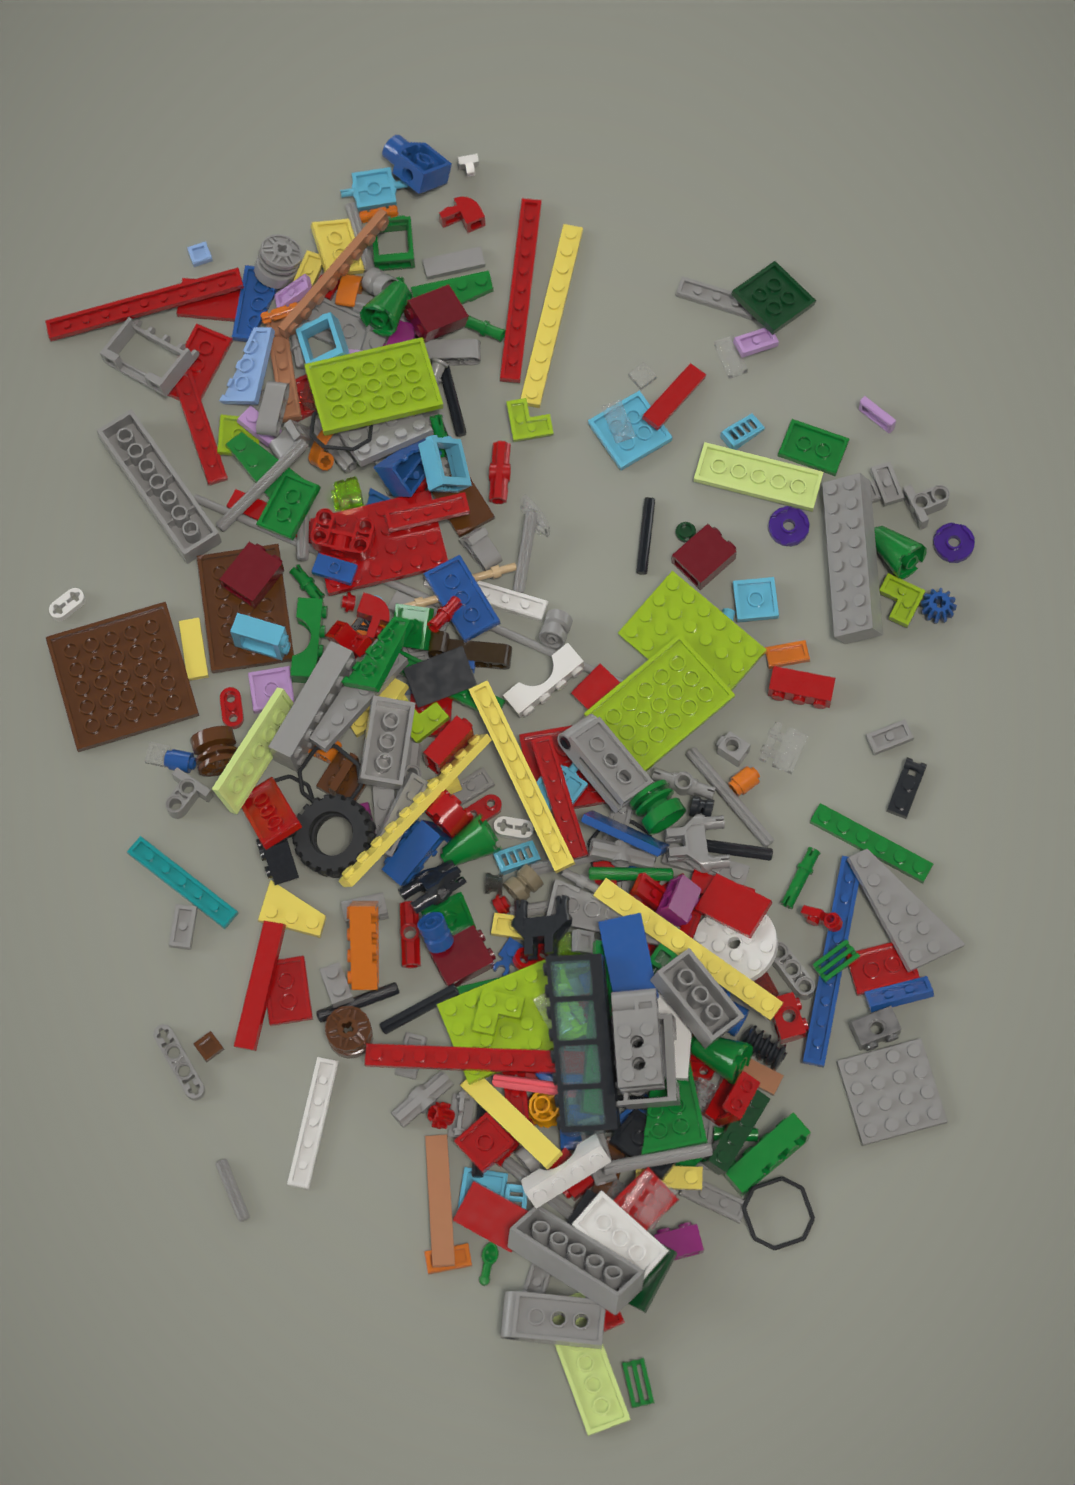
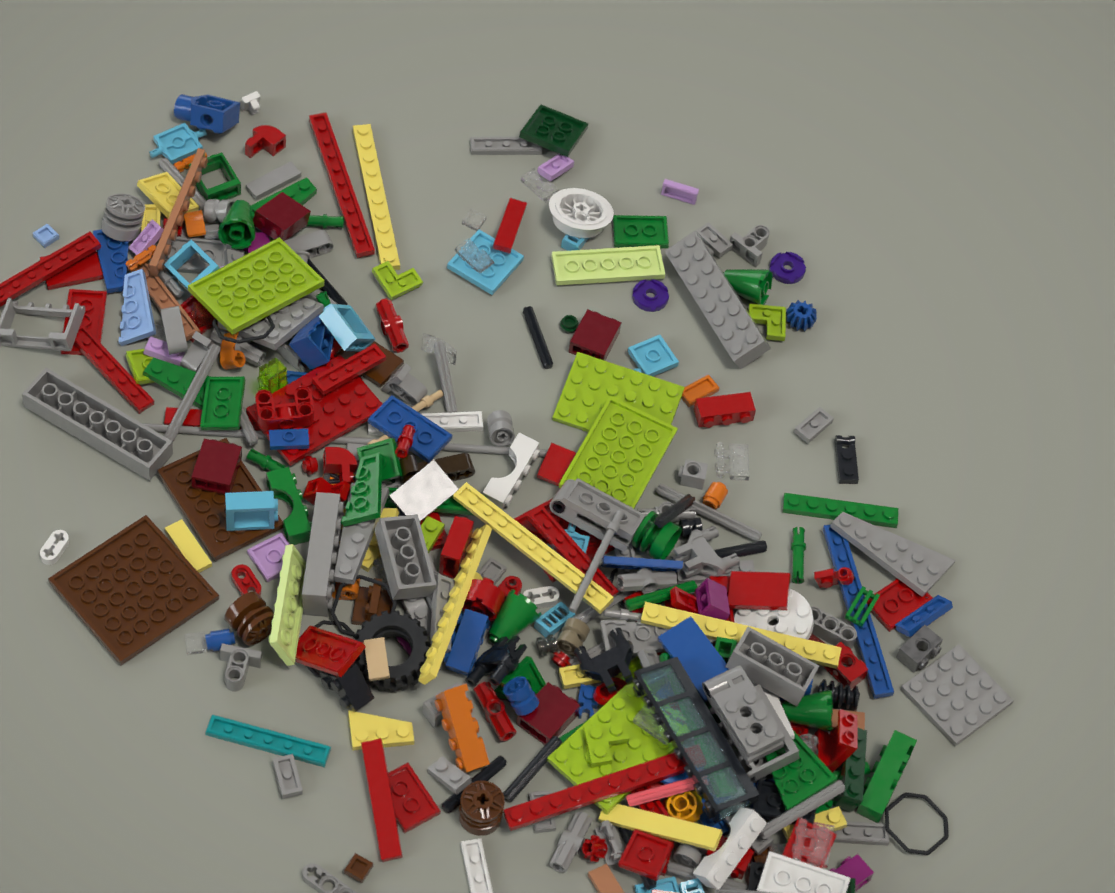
camera: 35 degrees left, 15 degrees down
(309, 842) = (376, 659): none -> tan tile
(604, 789) = (612, 529): none -> light grey bar
(684, 787) = (673, 511): none -> black axle
(750, 414) = (580, 212): none -> white piece

